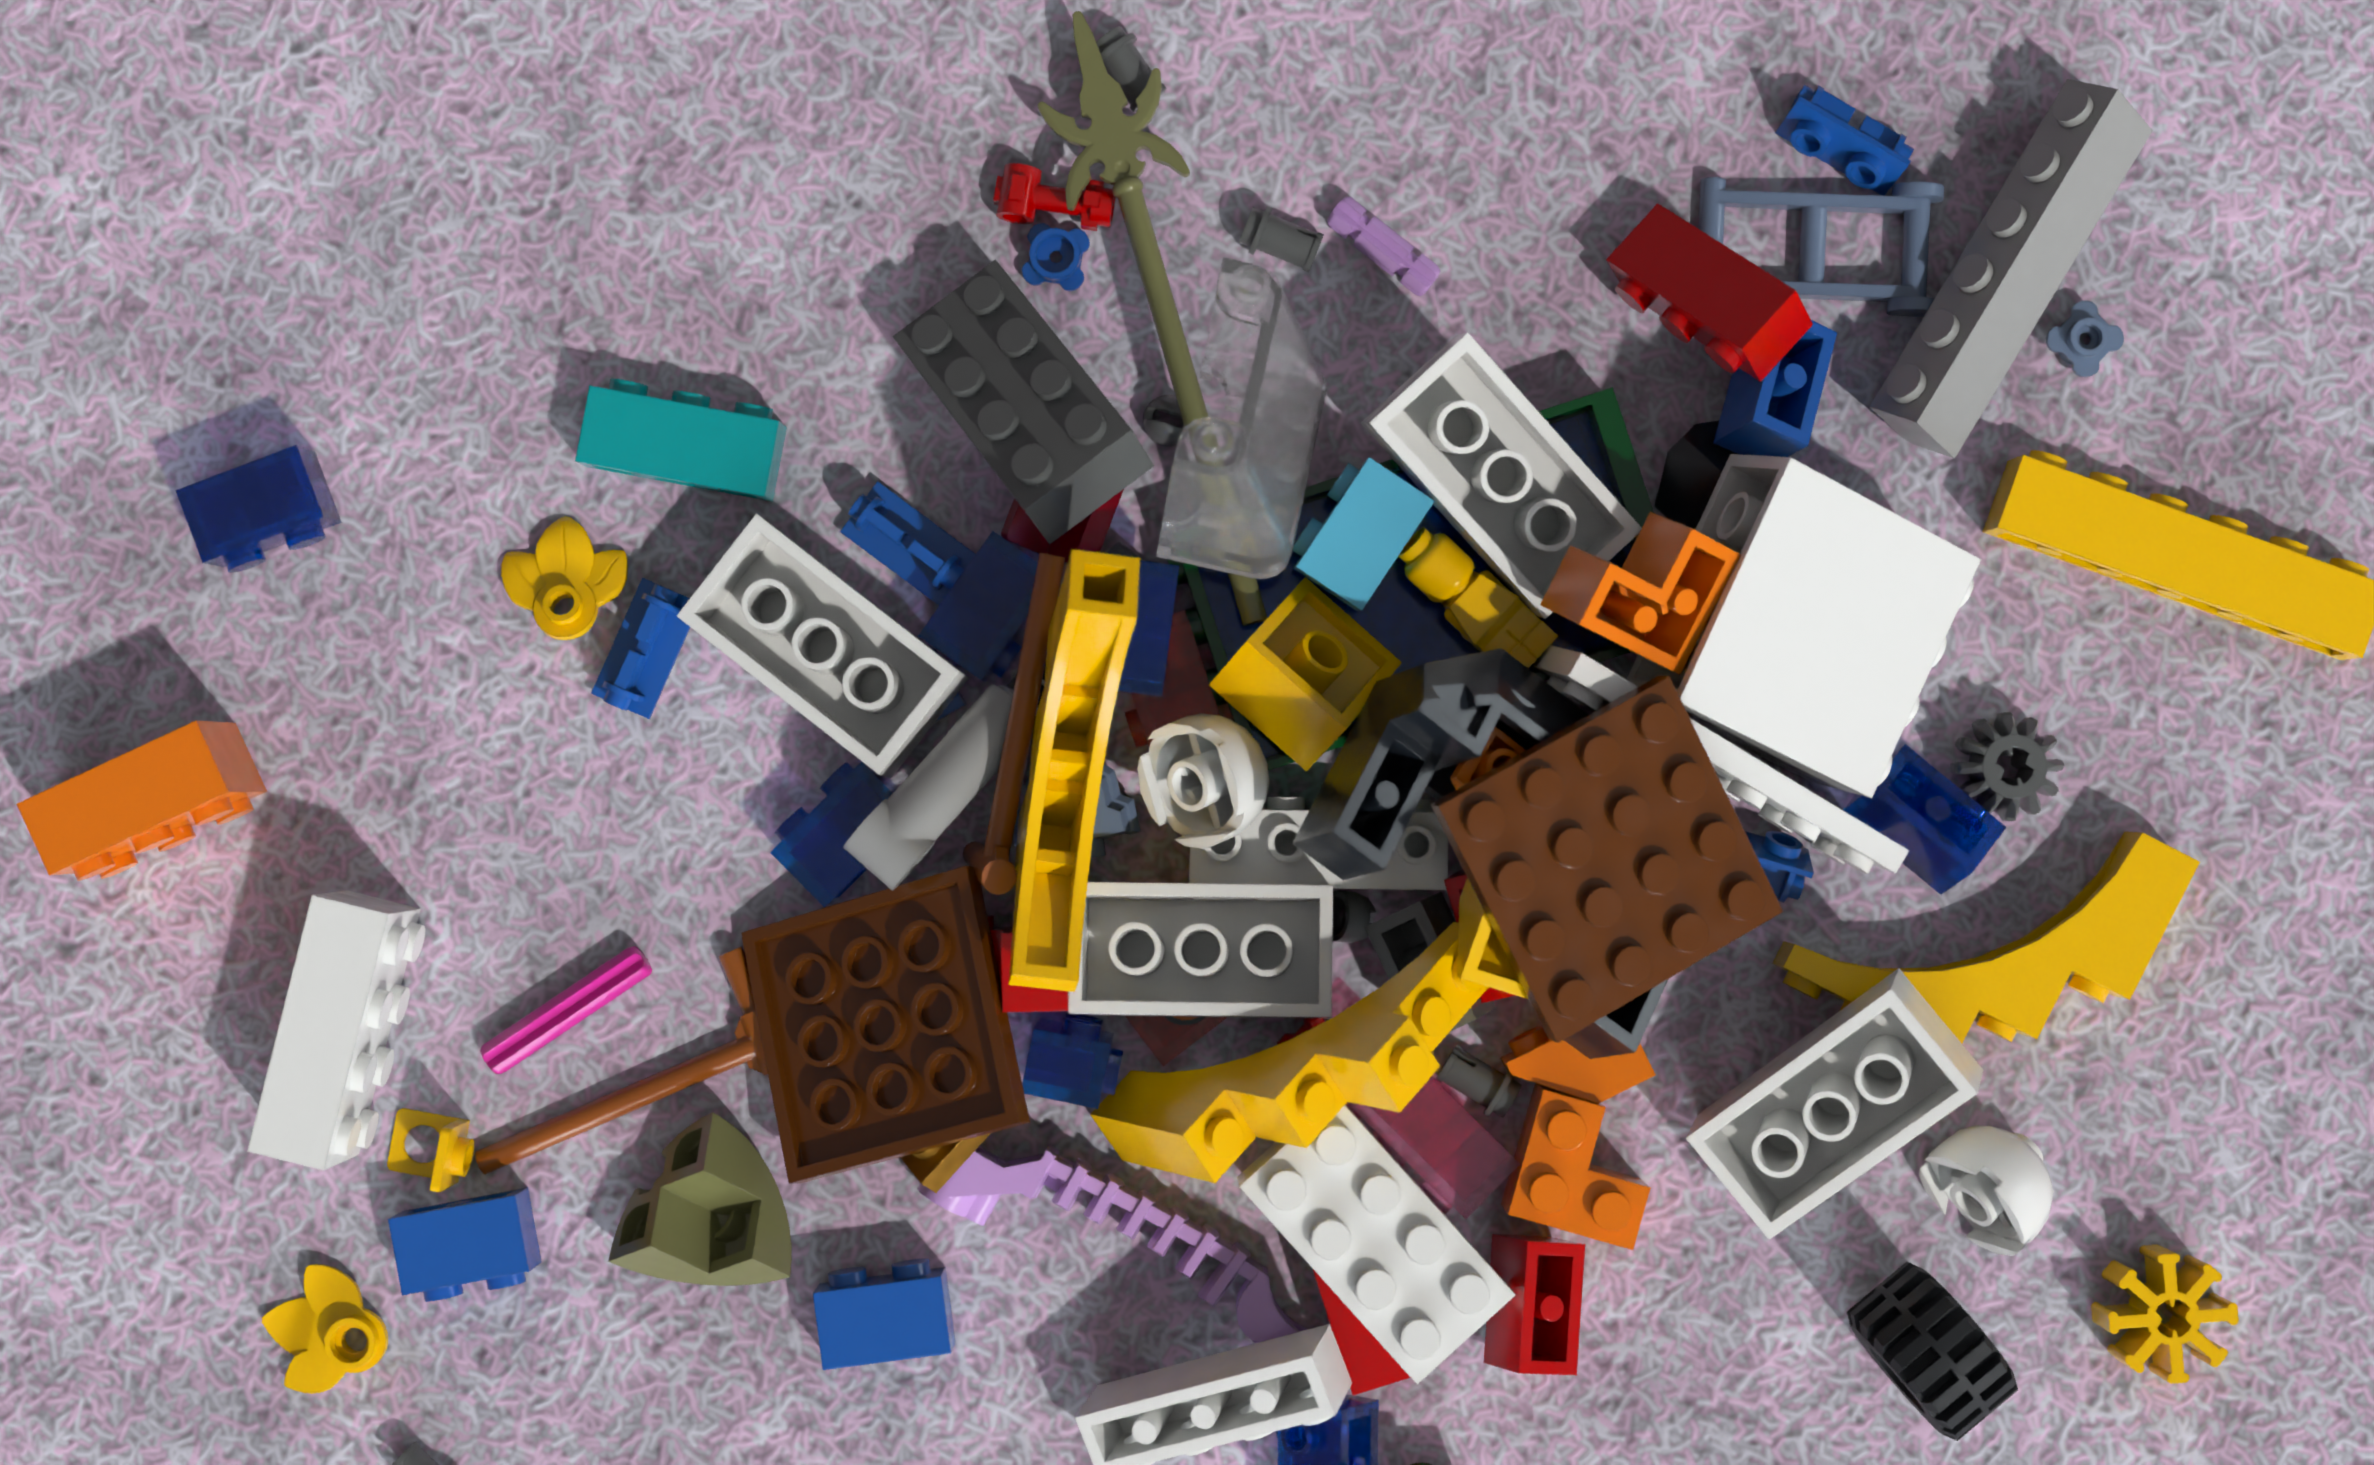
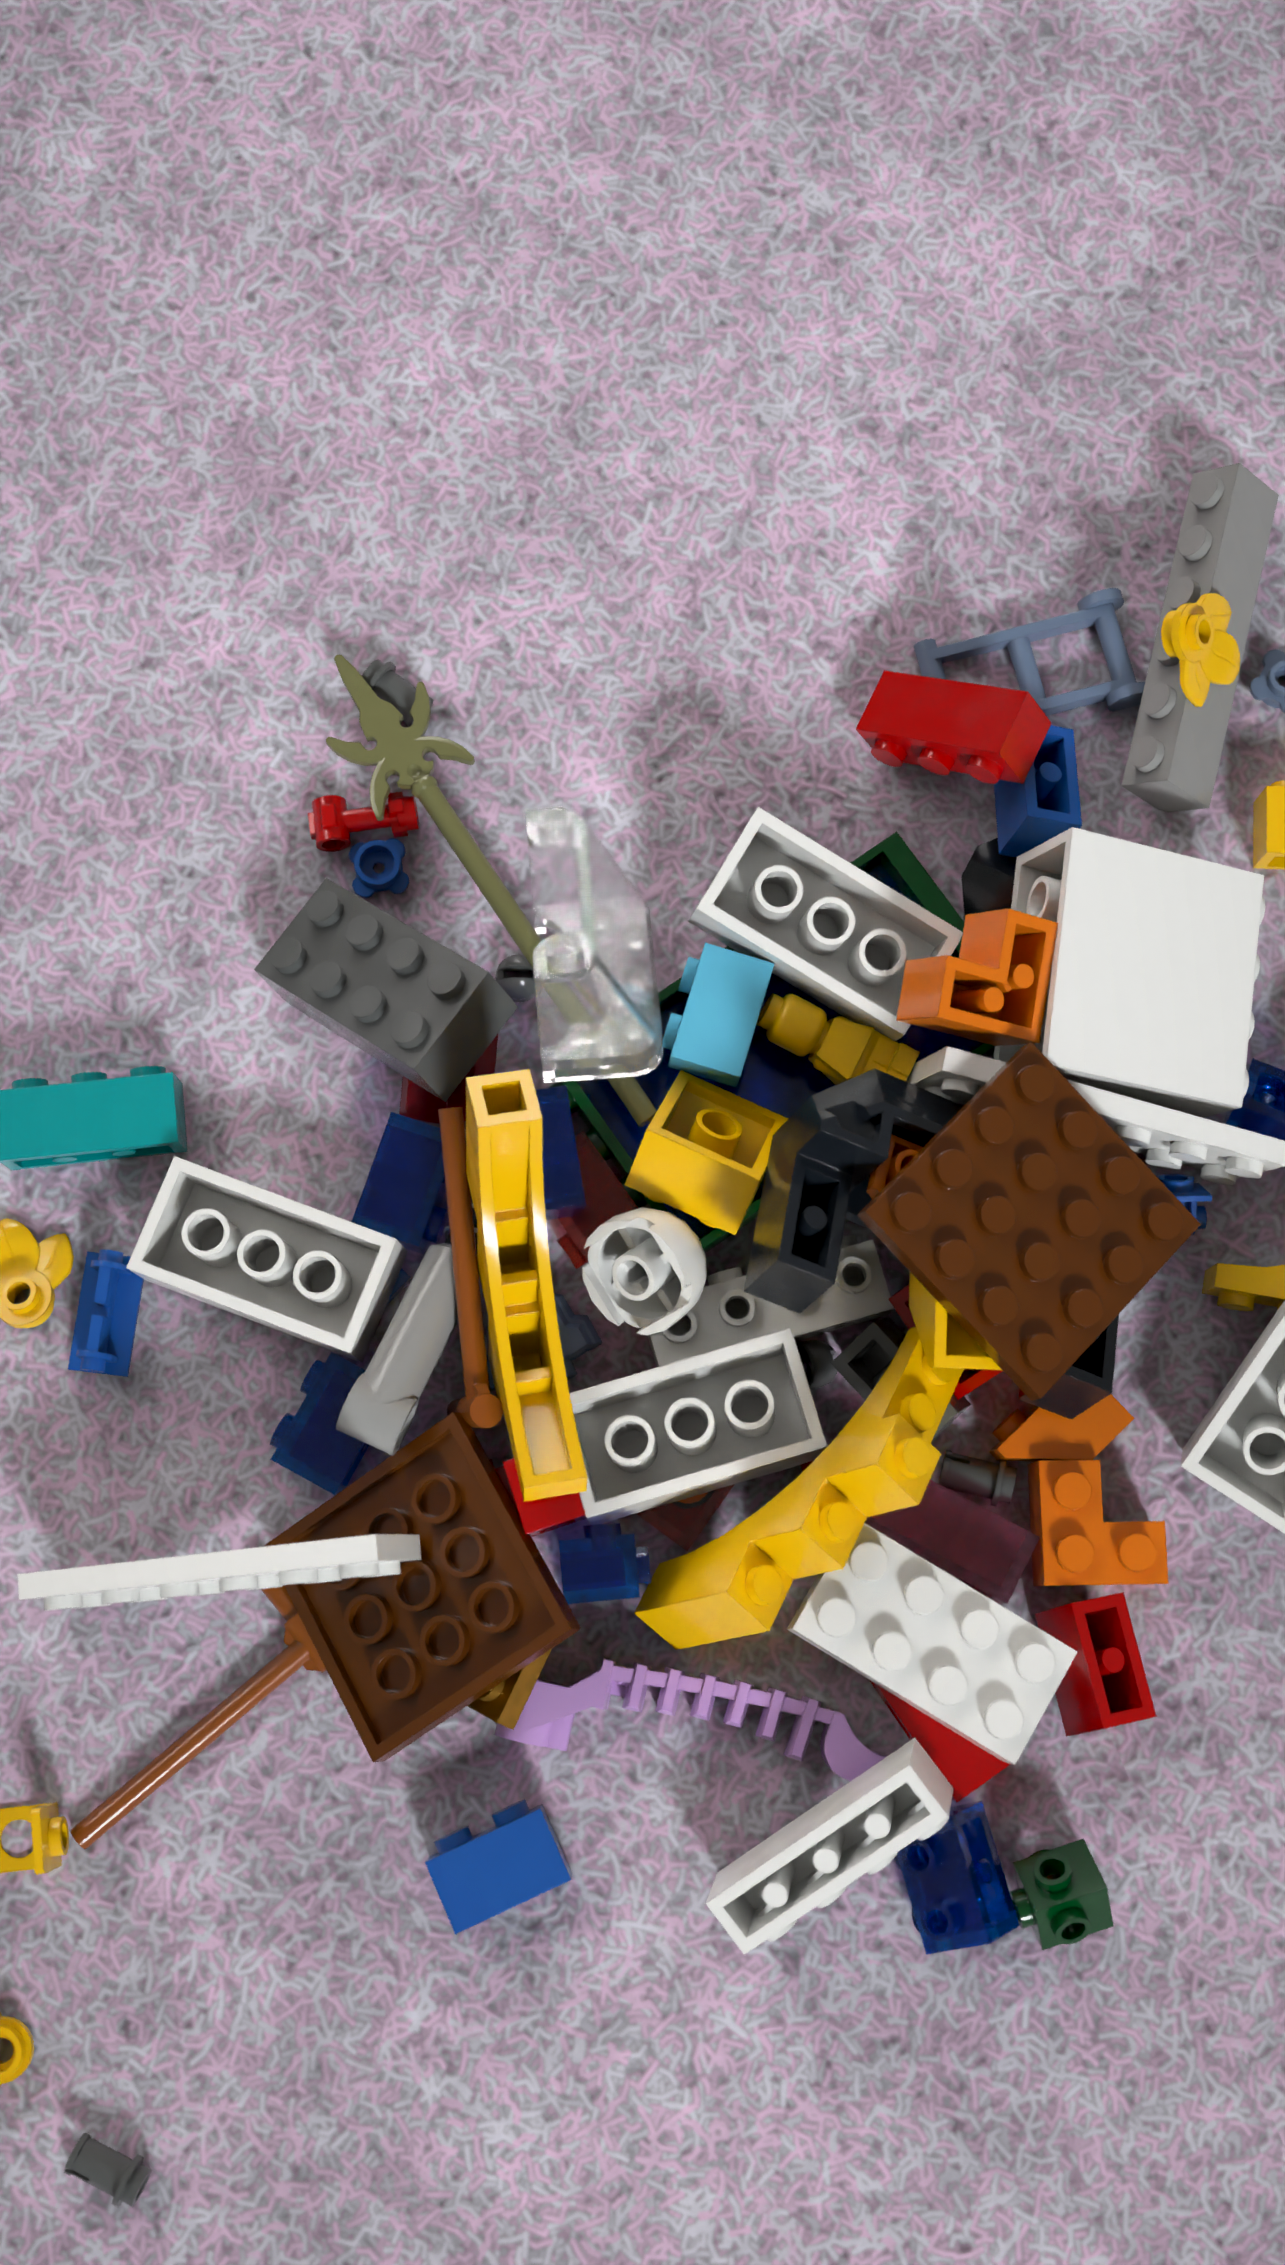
camera: 25 degrees left, 10 degrees down
(465, 1243) = (82, 1919): blue brick -> none
(566, 1010) = (119, 1670): dark pink axle -> none
(699, 956) = (221, 1571): none -> white plate
(708, 1214) = (307, 1822): olive brick -> none
(907, 542) = (316, 1150): blue hinge -> none
(1280, 238) = (573, 794): dark grey pin -> none
(1383, 246) = (660, 777): lavender axle -> none
(1820, 129) = (1041, 584): blue hinge -> none
(2004, 285) = (1200, 641): none -> yellow plate

